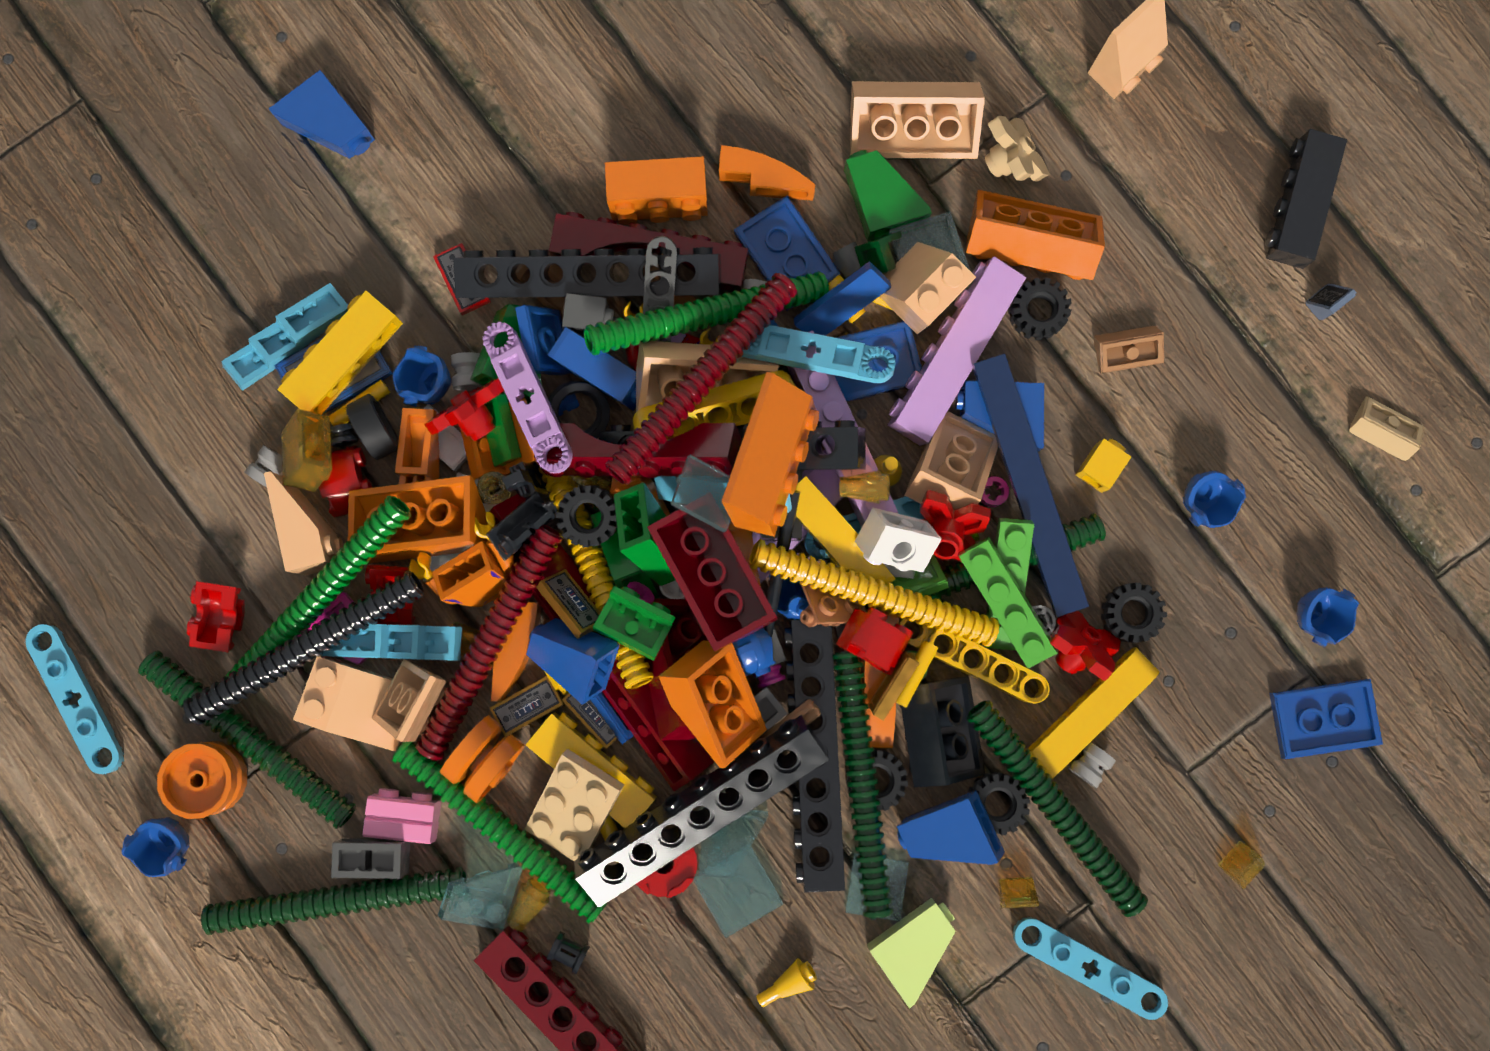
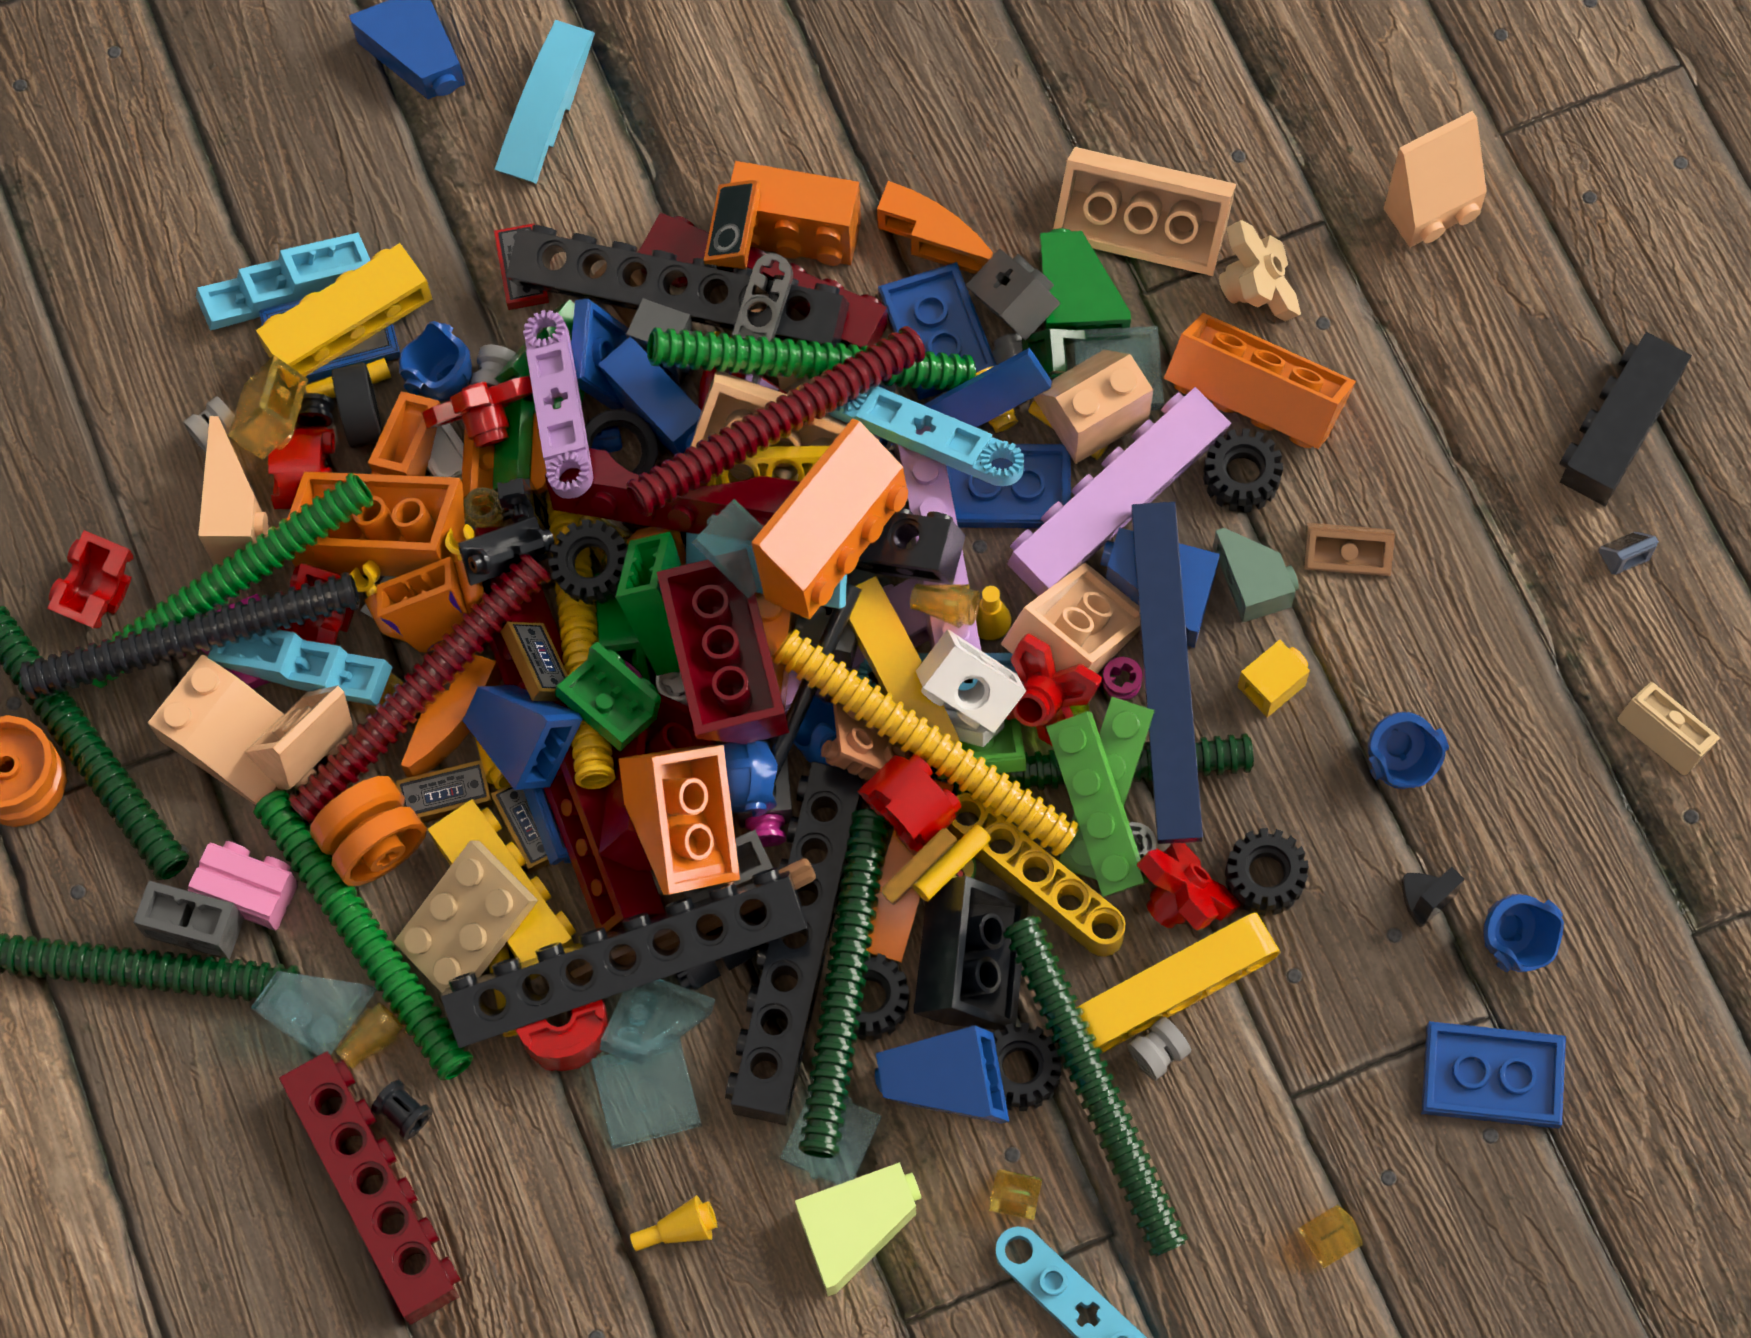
camera: 20 degrees right, 15 degrees down
(440, 140) = (544, 101): none -> medium azure slope
(618, 216) = (733, 224): none -> slope
(840, 215) = (1014, 292): none -> dark grey brick
(1069, 389) = (1254, 575): none -> sand green slope
(1253, 600) = (1428, 894): none -> black tile

